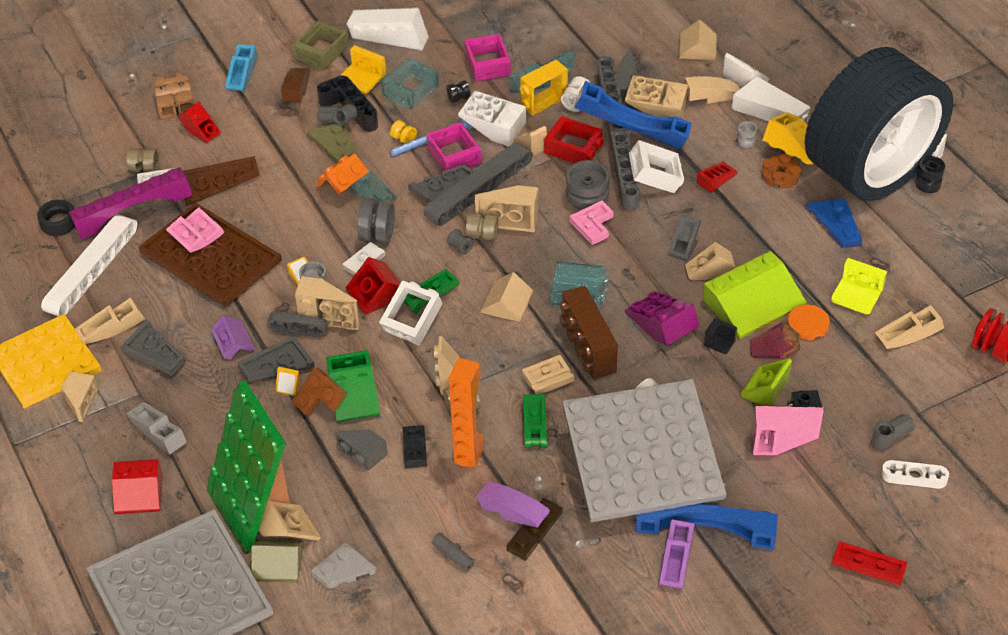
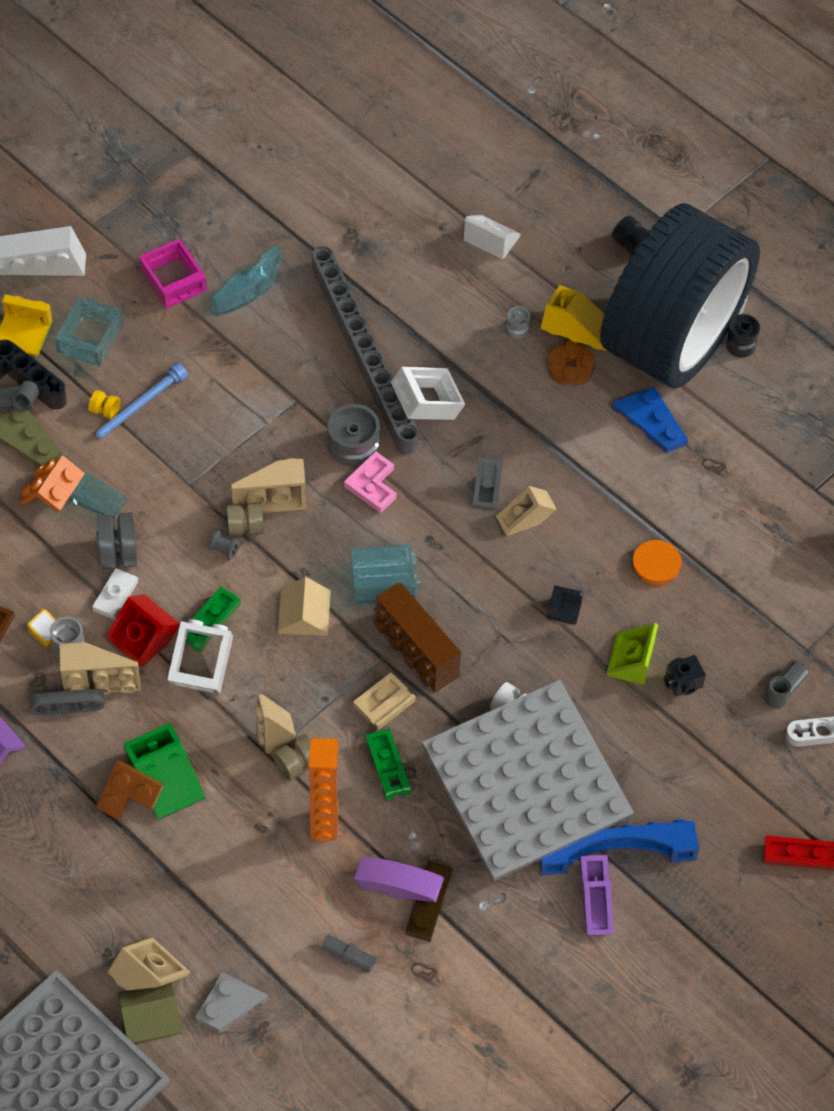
camera: 20 degrees left, 10 degrees up
(247, 467) = (91, 920): green piece -> none
(283, 354) = (59, 755): dark grey wing -> none
(287, 381) = (82, 781): slope -> none
(362, 446) = (200, 845): dark grey slope -> none
(414, 446) = (259, 830): black slope -> none
(433, 187) = (178, 471): dark grey wing -> none
(458, 91) = (153, 330): black wheel -> none
(470, 156) = (186, 432): dark pink window -> none
(480, 181) = (220, 459): dark grey beam -> none
(494, 117) = (209, 360): white slope -> none
(533, 140) = (265, 382): tan slope -> none
(552, 72) = (259, 307): yellow window -> none
(556, 147) = (314, 390): red window -> none
(571, 93) = (300, 306): white wheel -> none
(625, 73) = (354, 268): dark grey slope -> none
(657, 97) = (400, 293): tan slope -> none
(664, 317) = (493, 593): magenta slope -> none
(666, 130) = (337, 324): blue arch -> none
(698, 42) = (421, 200): tan slope -> none
(704, 176) = (495, 400): red slope -> none
(710, 89) = (458, 266): tan slope -> none
(753, 294) = (587, 541): lime slope -> none
(767, 101) = (532, 272): white slope -> none
(775, 343) = (629, 600): clear pink slope -> none
(784, 428) = (667, 712): bright pink slope -> none
(859, 286) = (702, 505): neon yellow bracket -> none
(910, 328) = (771, 546): tan slope -> none

